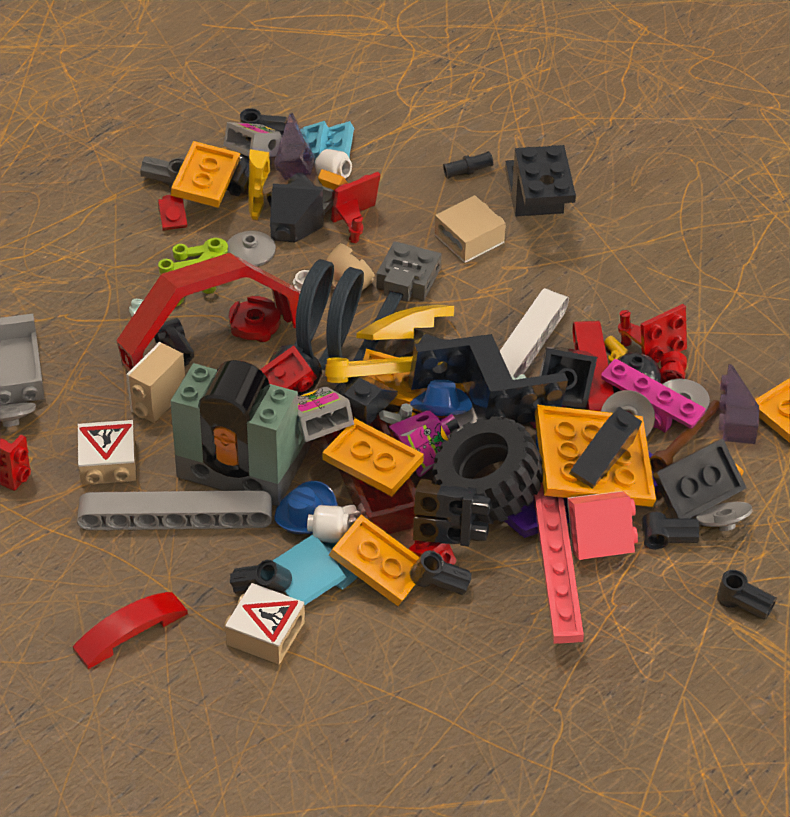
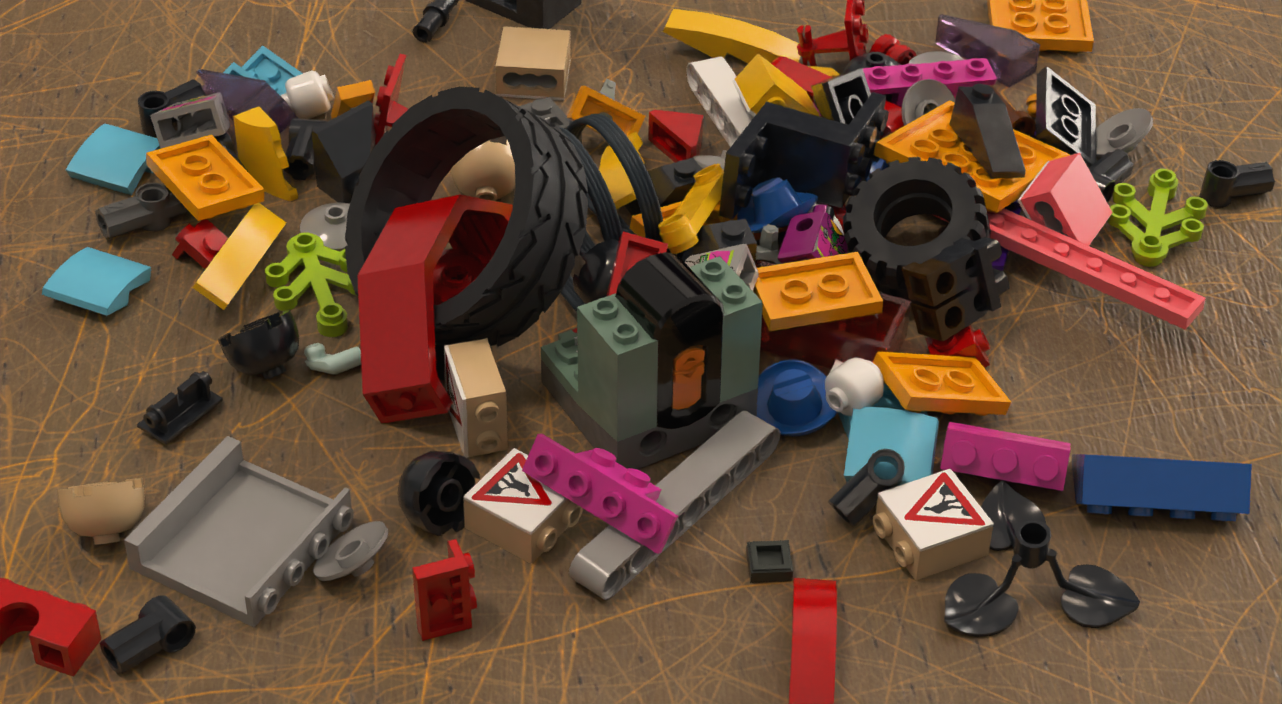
camera: 50 degrees left, 5 degrees down
(56, 286) = (179, 411): none -> black hinge
(74, 408) = (434, 490): none -> black cylinder
(104, 194) = (96, 281): none -> medium azure slope
(114, 282) = (263, 345): none -> black cylinder
(133, 470) = (604, 489): none -> dark pink bracket
(173, 228) = (239, 255): none -> yellow slope
(174, 574) = (769, 561): none -> pearl dark grey tile
(204, 129) = (113, 158): none -> medium azure slope
(230, 682) = (983, 609): none -> black plant
(231, 315) = (544, 221): none -> black tyre
(350, 622) = (1005, 456): none -> dark pink brick
(407, 705) = (1162, 484): none -> blue slope
(433, 570) = (1004, 351): black piece -> none
(452, 284) = (603, 102): none -> light orange piece
(480, 322) = (676, 133): none -> red slope
(534, 335) = (765, 83): none -> yellow piece
(596, 290) = (724, 35): none -> yellow slope
(703, 565) = (1150, 247): none -> lime plant

